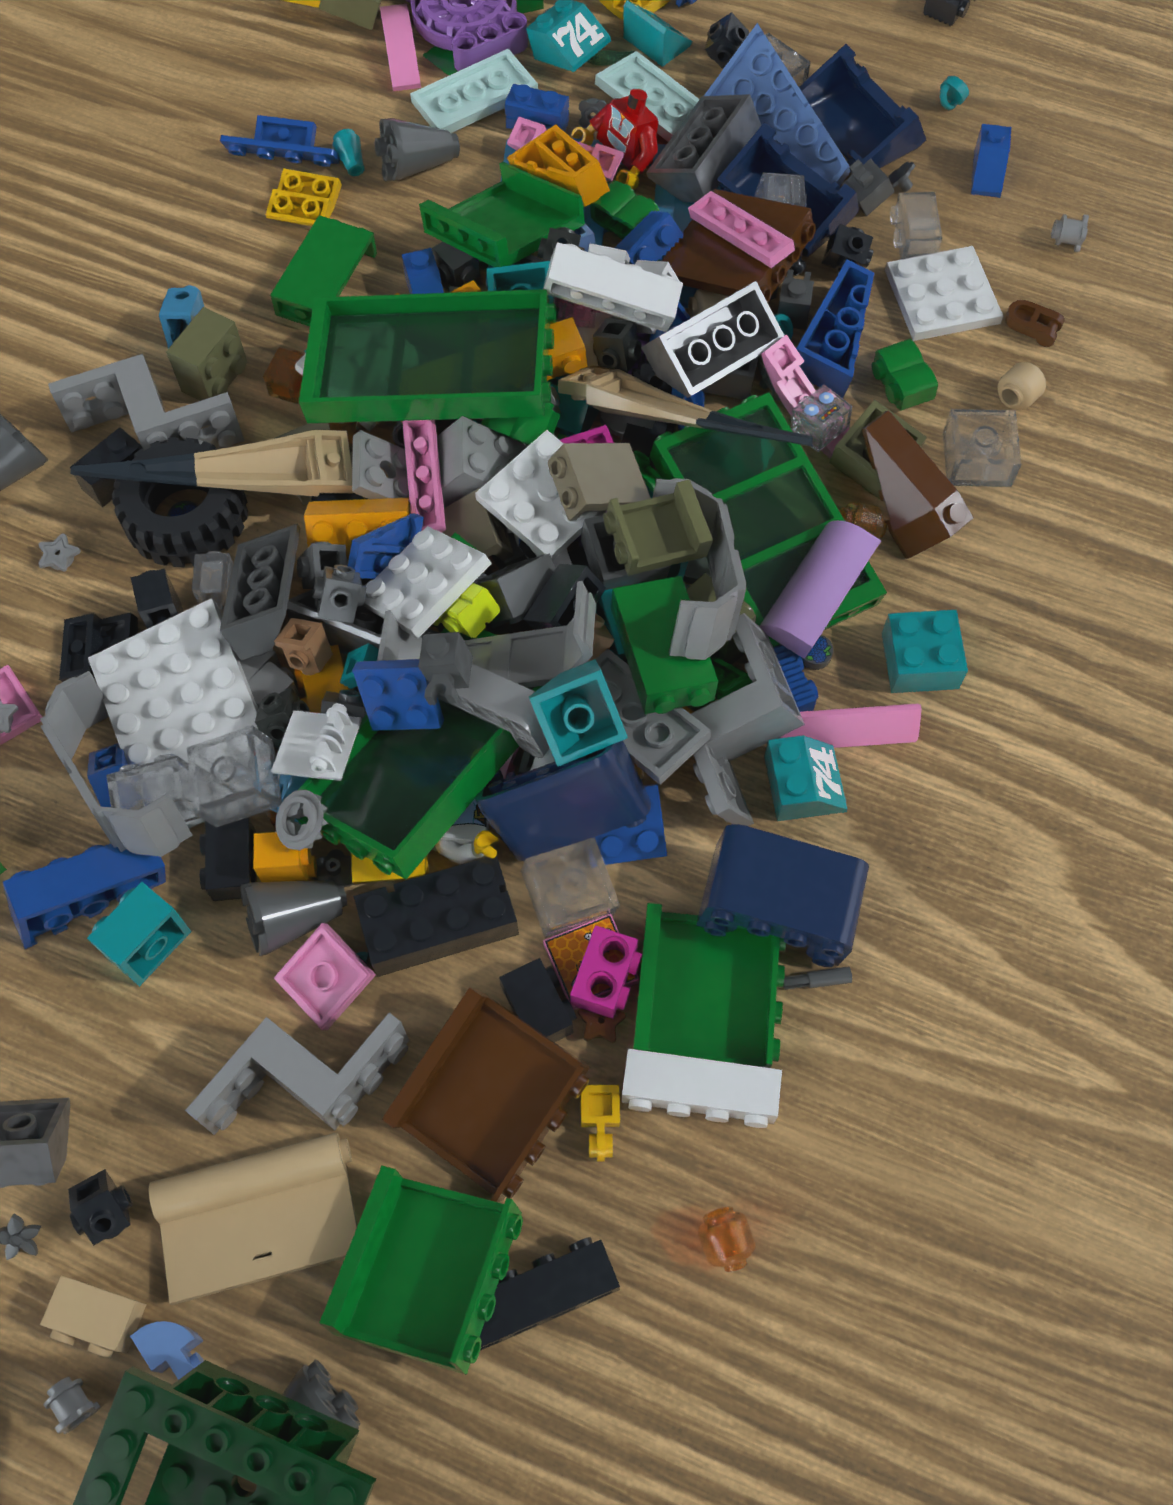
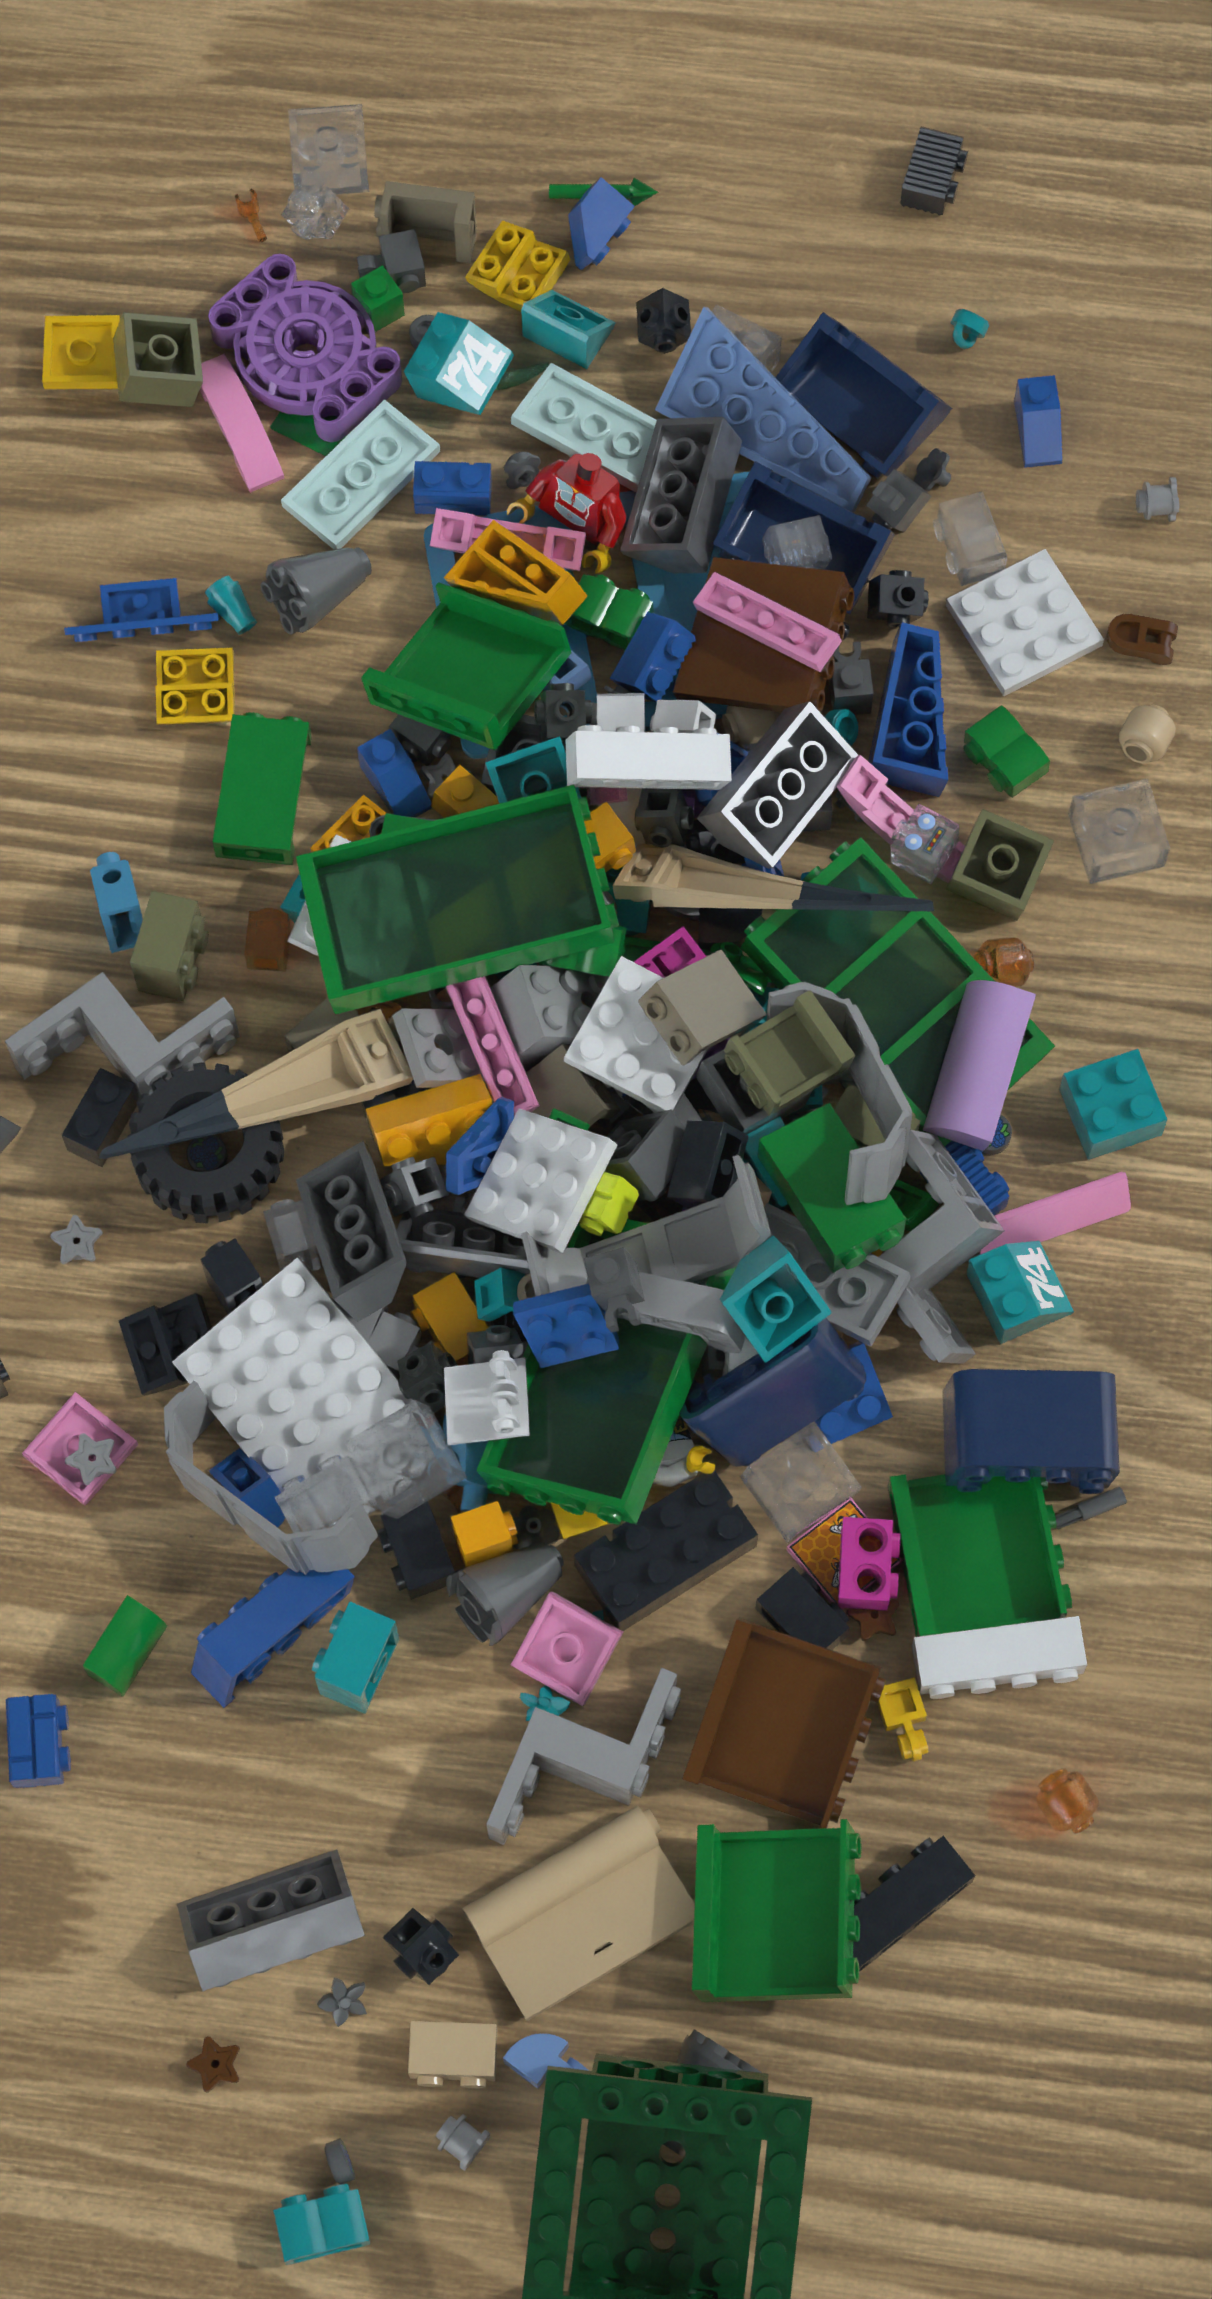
camera: 15 degrees left, 5 degrees up
(291, 1021) = (544, 1701): none -> teal plant
(297, 805) = (494, 1506): light grey gear -> none
(306, 652) = (431, 1298): medium nougat brick -> none
(339, 593) = (451, 1220): dark grey brick -> none
(917, 495) = (1061, 917): reddish brown wedge -> none

